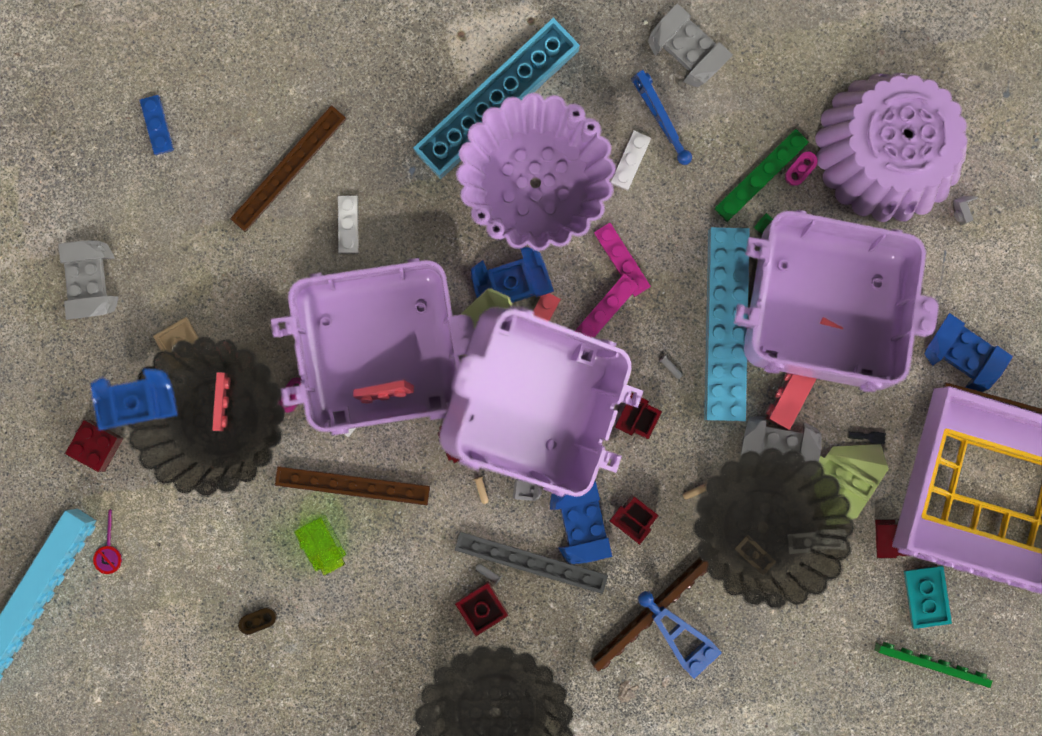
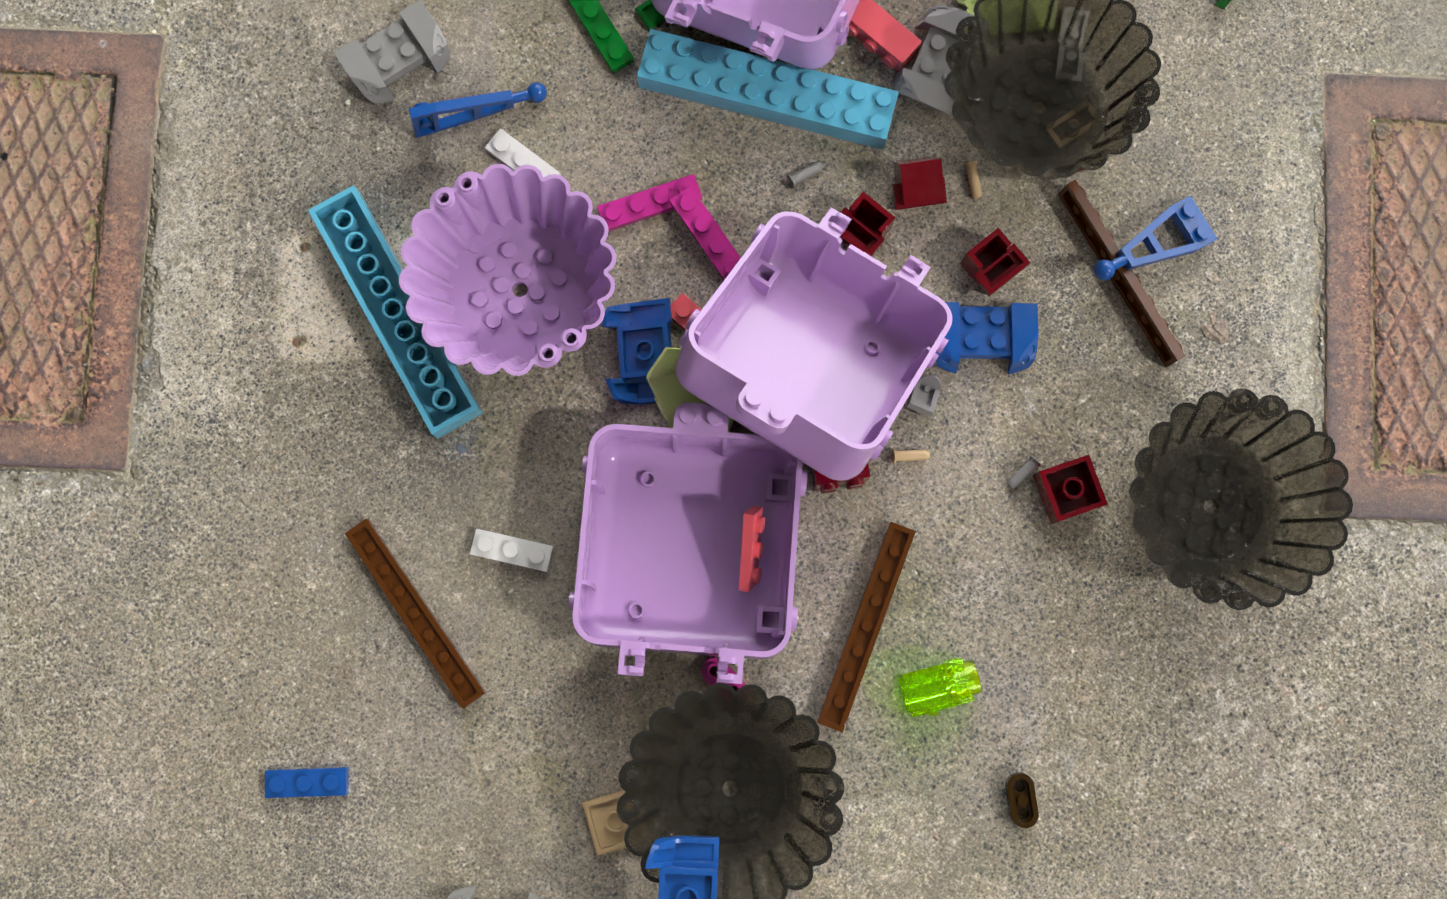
camera: 75 degrees left, 5 degrees down
(221, 401) = (711, 778): coral plate -> none
(531, 562) = (1021, 413): dark grey plate -> none
(682, 451) = (918, 183): none -> dark red plate

